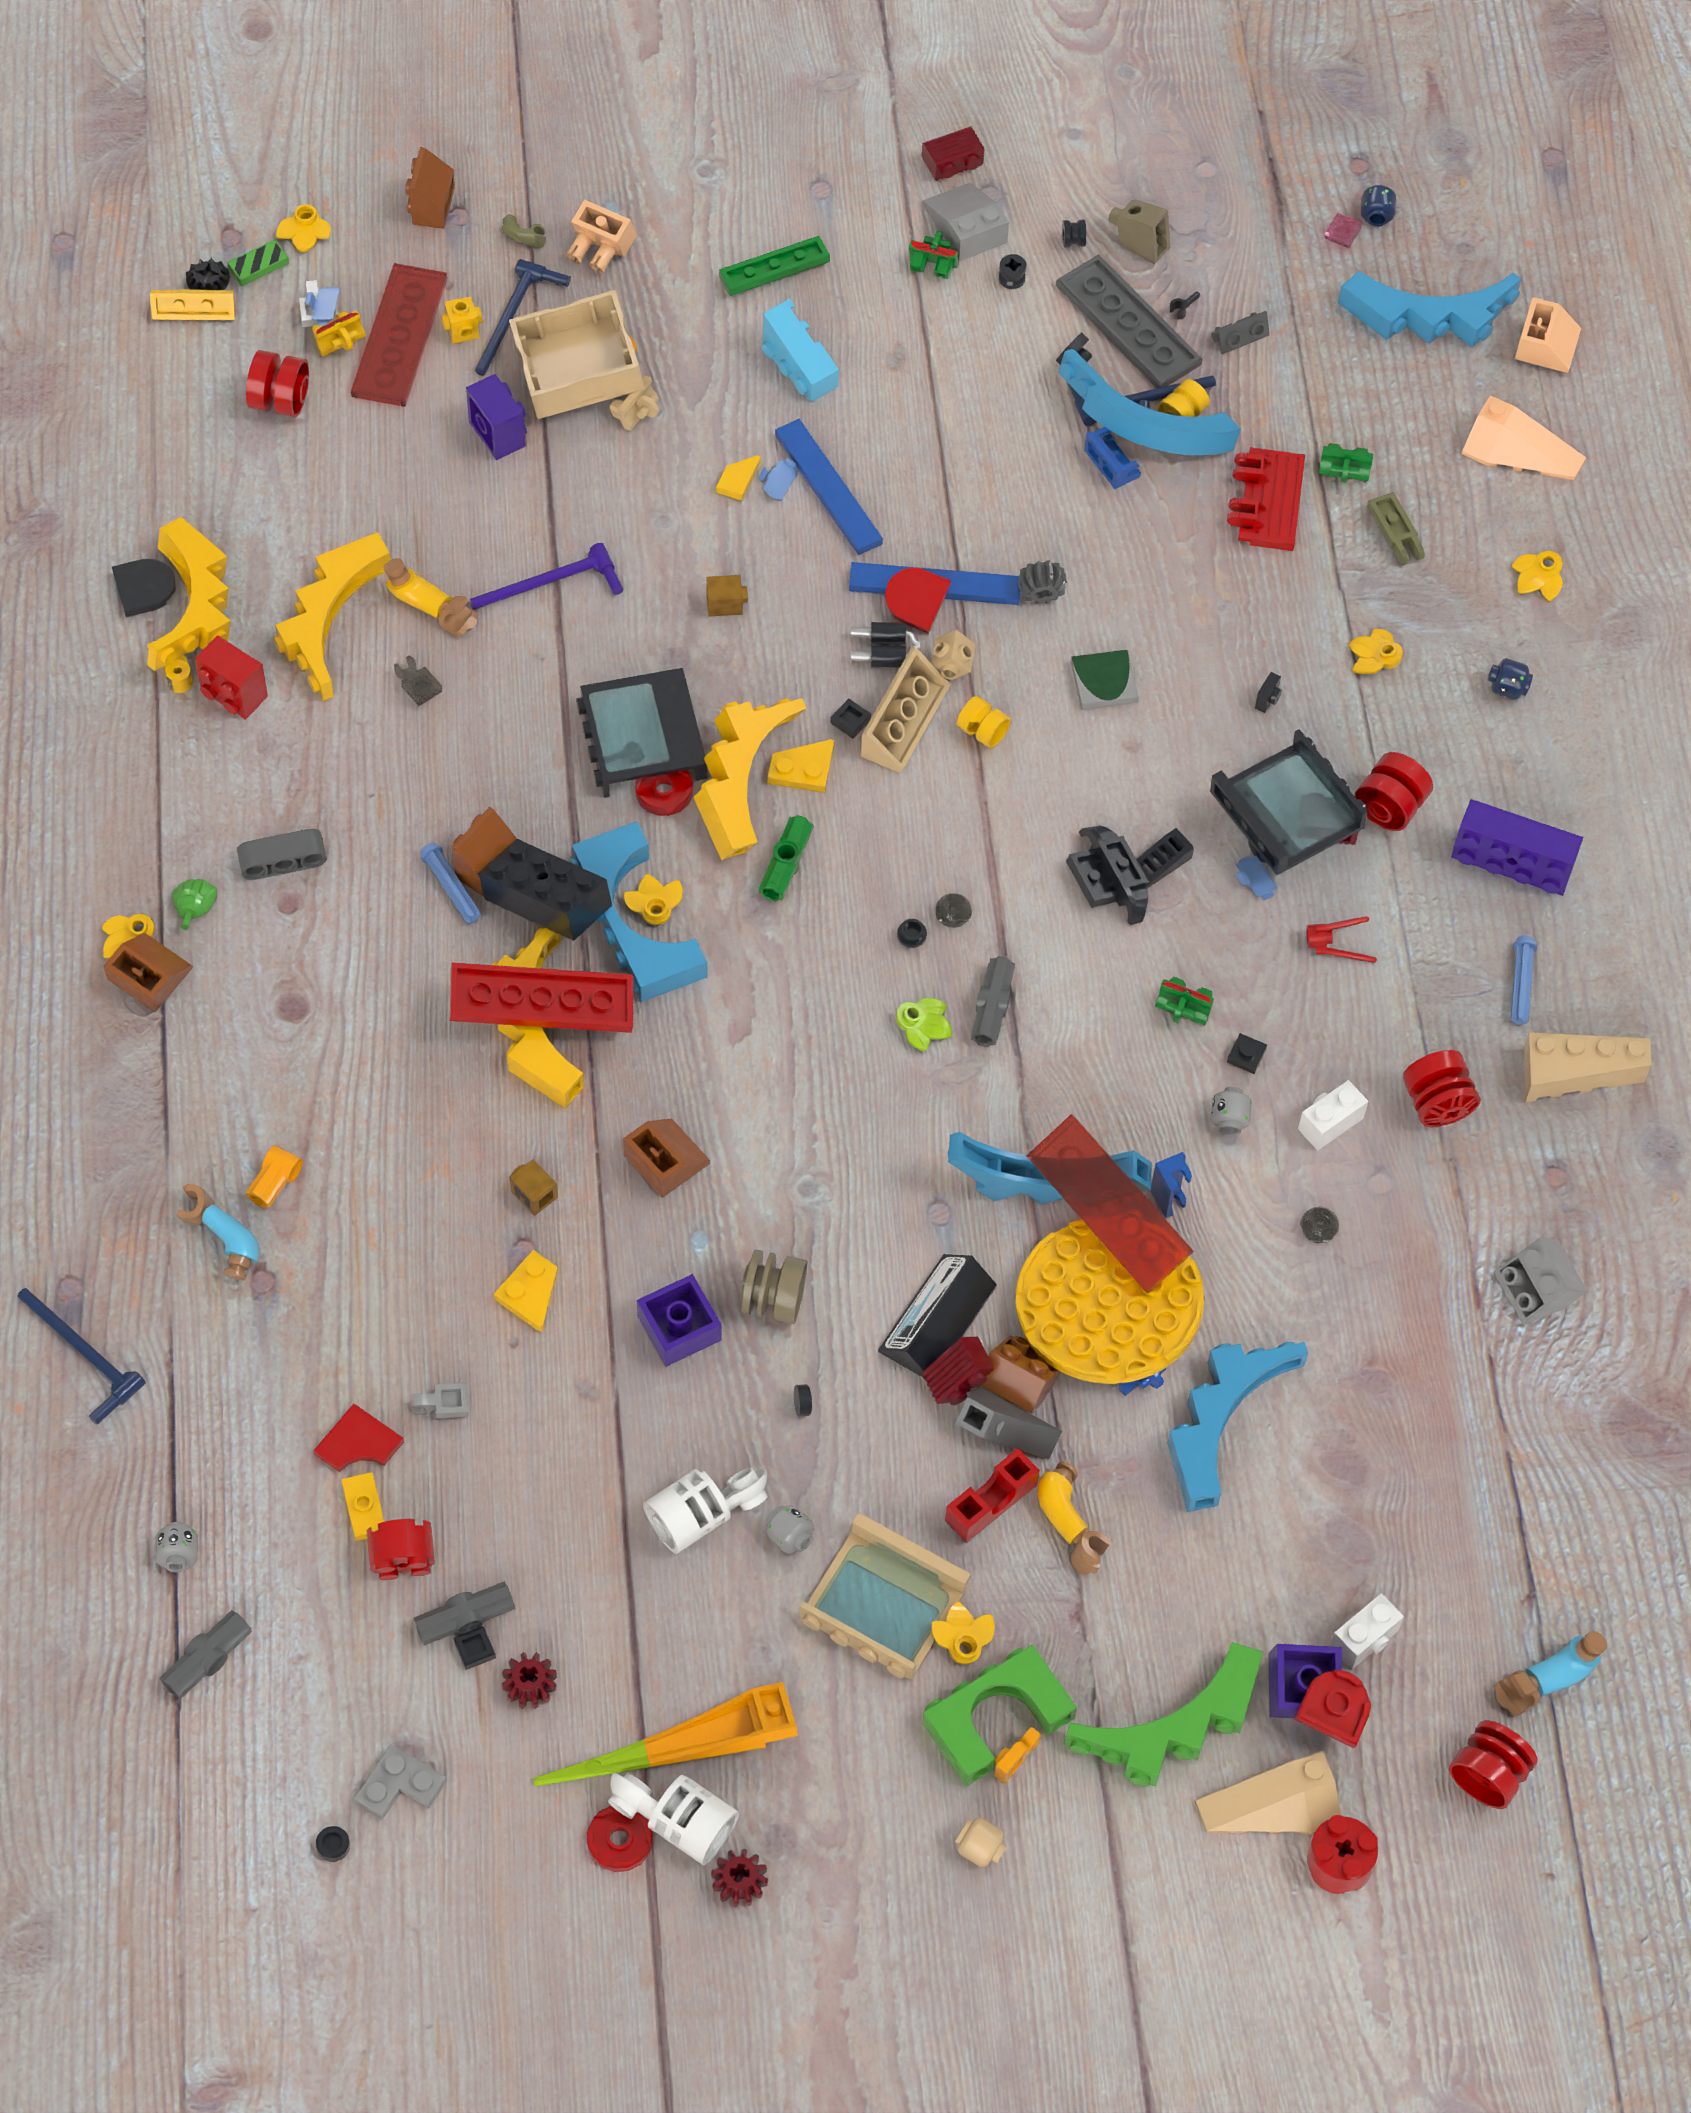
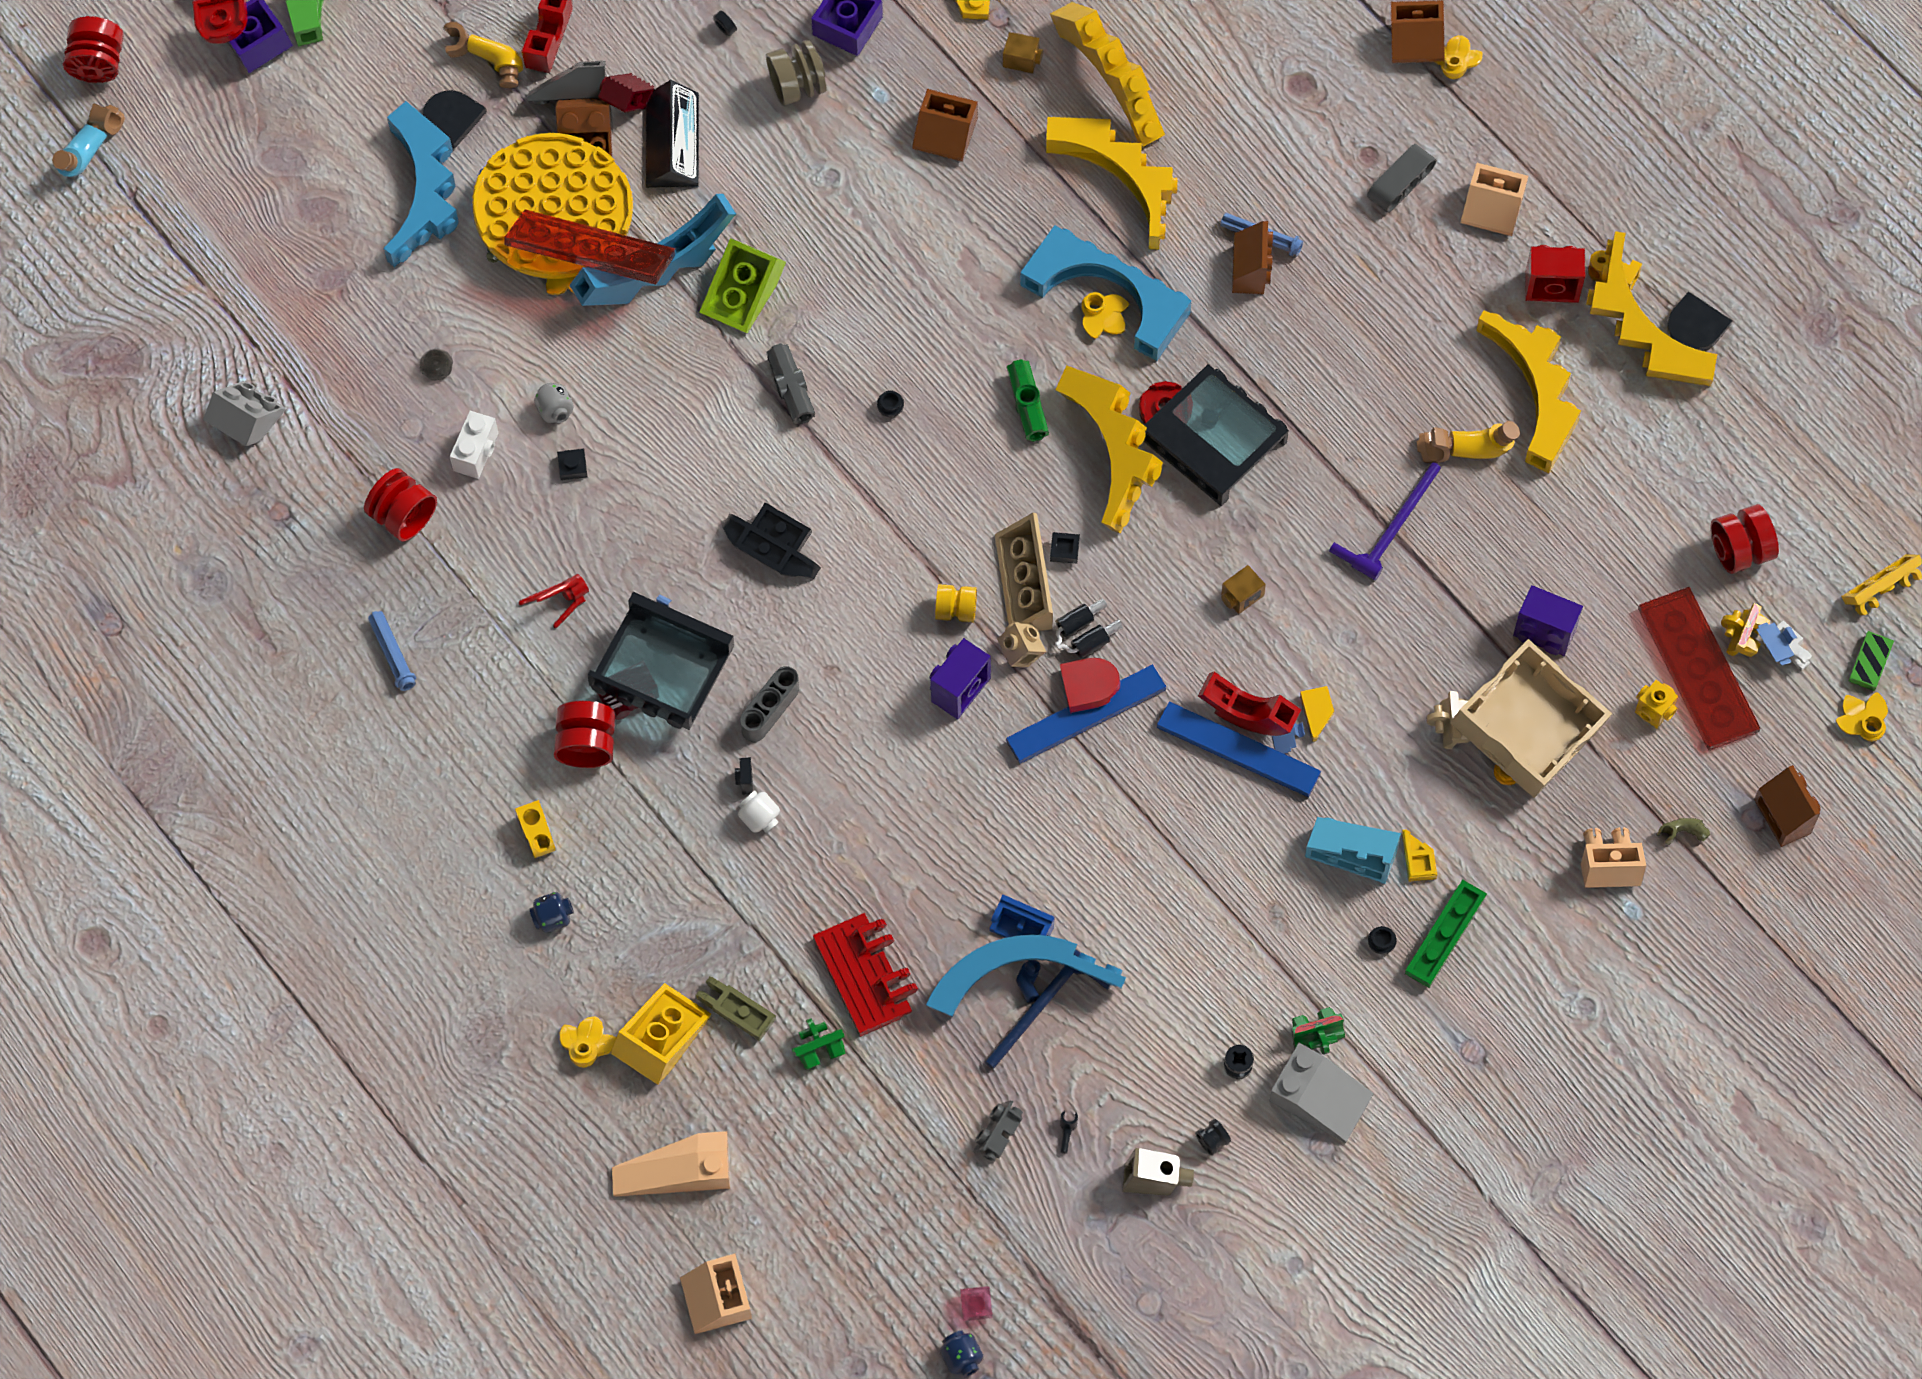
camera: 150 degrees right, 5 degrees up
(193, 899) = (1436, 110): bright green piece -> none
(217, 281) = (1893, 630): black gear -> none
(218, 780) = (1494, 199): none -> light nougat slope
(418, 683) = (1417, 371): clear smoke plate -> none
(465, 1115) = (1126, 80): none -> yellow arch
(528, 273) = (1643, 794): dark blue bar -> none
(541, 997) = (1116, 165): red plate -> none
(545, 889) = (1180, 247): black brick -> none
(748, 331) = (1418, 858): none -> yellow tile
(794, 495) = (1256, 714): none -> red arch
(802, 766) = (1072, 489): yellow wing -> none
(828, 290) = (1382, 940): none -> black plate
(927, 1022) = (829, 343): lime plate -> none
(951, 917) = (875, 449): clear smoke plate -> none
(953, 153) = (1381, 1154): dark red brick -> none
(977, 1110) = (742, 285): none -> lime slope
(1028, 651) = (960, 678): none -> dark purple brick
(1042, 581) = (995, 754): dark grey gear -> none
(1077, 344) = (1125, 1008): black tile -> none
(1104, 679) = (889, 712): dark green tile -> none
(1129, 322) = (1103, 1080): dark grey tile -> none
(1146, 1476) = (453, 114): none -> black tile
(1168, 1181) = (564, 310): blue hinge -> none
(1176, 846) = (732, 599): black slope -> none
(1185, 1002) = (632, 473): green hips -> none
(1186, 400) = (994, 1009): yellow wheel -> none
(1197, 746) = (765, 715): none -> dark grey beam
(1277, 656) = (758, 812): none -> white head
(1367, 1631) = (231, 94): white brick -> none
(1374, 652) = (685, 873): yellow plate -> none
(1430, 317) = (805, 1275): dark azure arch -> none
(1472, 541) = (660, 1033): none -> yellow slope
(1482, 756) = (535, 828): none -> yellow leg
(1516, 847) = (455, 745): dark purple brick -> none
(1582, 1062) = (304, 600): tan wedge -> none

